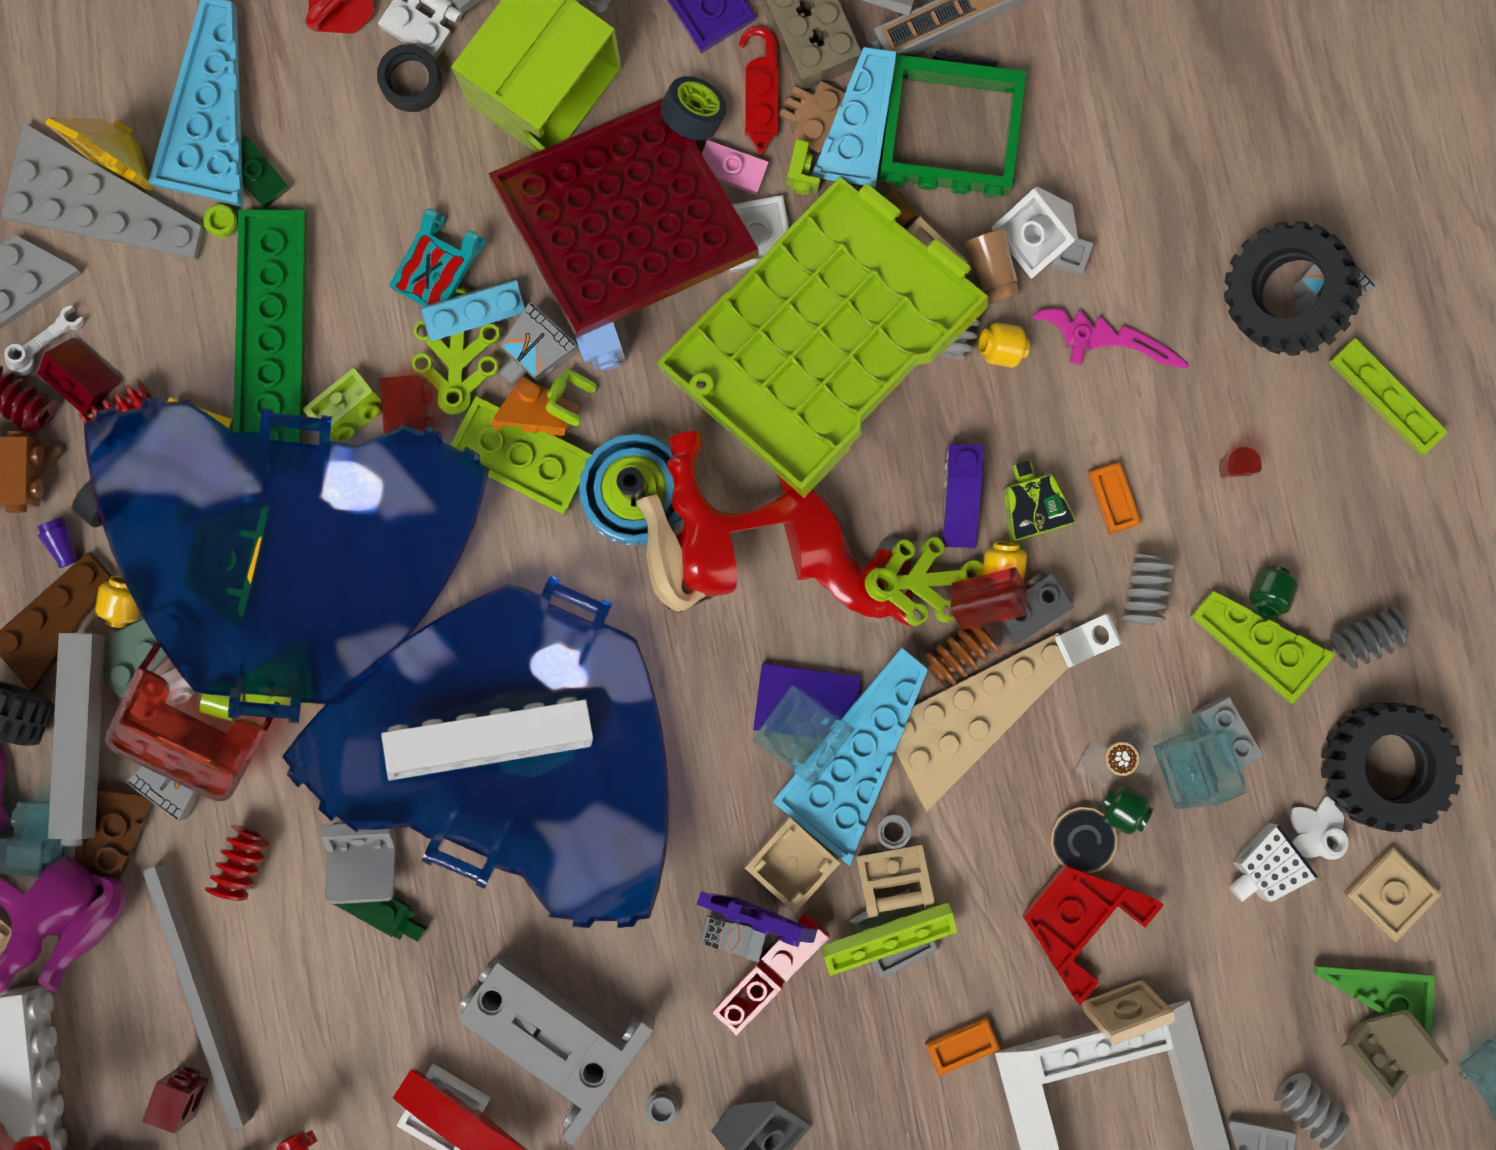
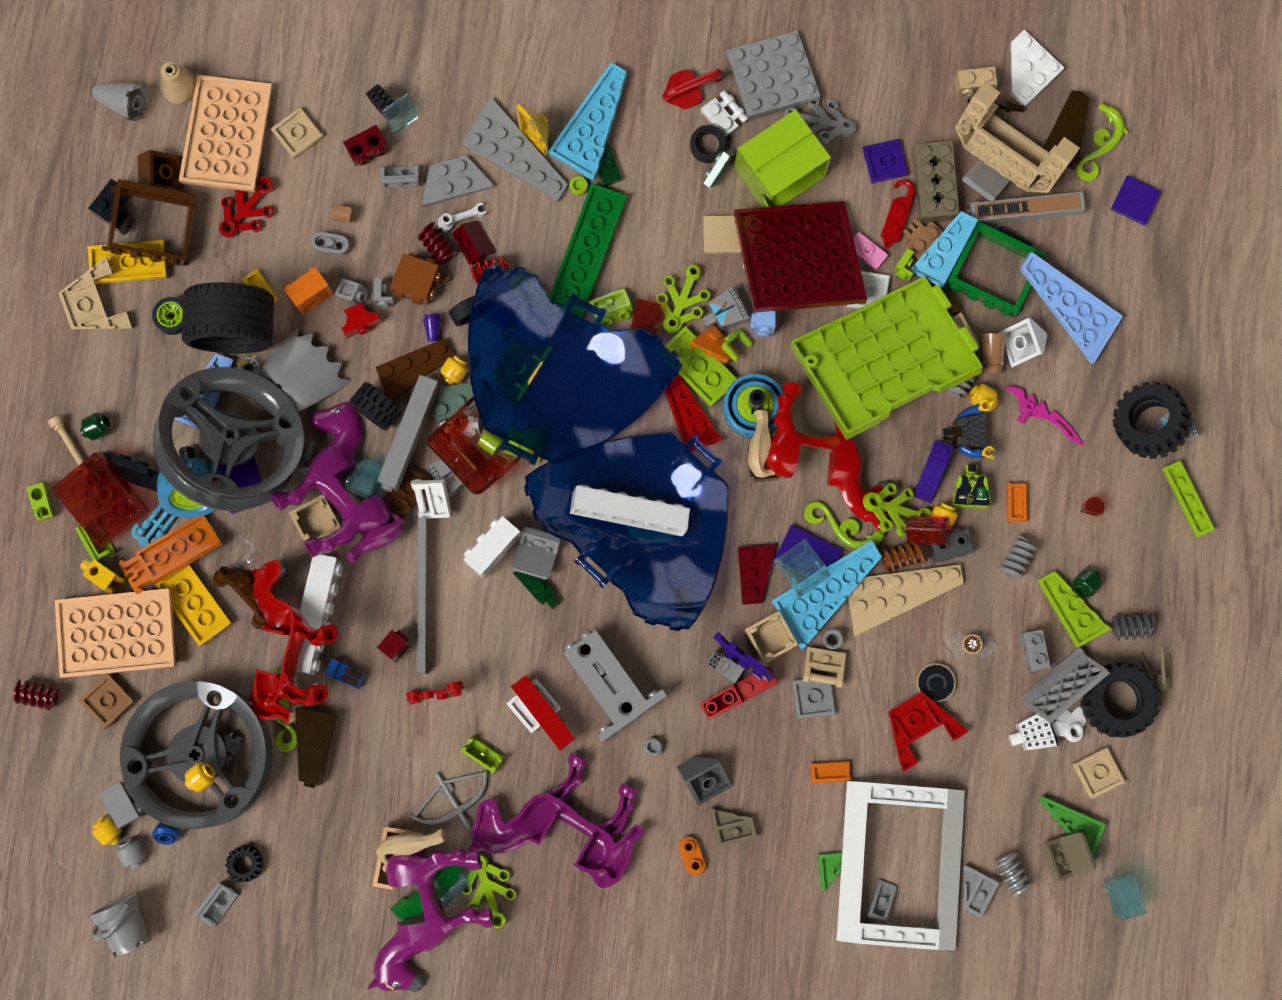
camera: 25 degrees right, 5 degrees down
(159, 827) = (436, 496): none -> white plate
(239, 865) = (470, 532): red piece -> none
(280, 879) = (492, 546): none -> white brick
(432, 267) = (685, 249): flag -> none
(437, 125) = (721, 165): none -> wing
(472, 310) = (699, 279): medium azure plate -> none
(485, 215) = (720, 235): none -> tan tile
(534, 542) = (689, 415): none -> red wing
(693, 108) = (857, 212): black wheel -> none
(727, 759) = (754, 571): none -> dark red wing
(845, 645) = (840, 530): none -> lime plant
(889, 939) = (810, 696): lime plate -> none
(1002, 410) = (970, 432): none -> torso
(1074, 258) = (1038, 363): light grey plate -> none
(1081, 643) = (971, 573): white bracket -> none
(1111, 149) = (1077, 310): none -> light blue wing
(1126, 809) = (965, 673): dark green head -> none
(1128, 1012) = (928, 781): tan tile -> none
(1200, 768) = (1013, 662): clear light blue container -> none
(1278, 769) = (1058, 680): none -> light grey fence
(1443, 707) = (1162, 680): none -> dark tan plant

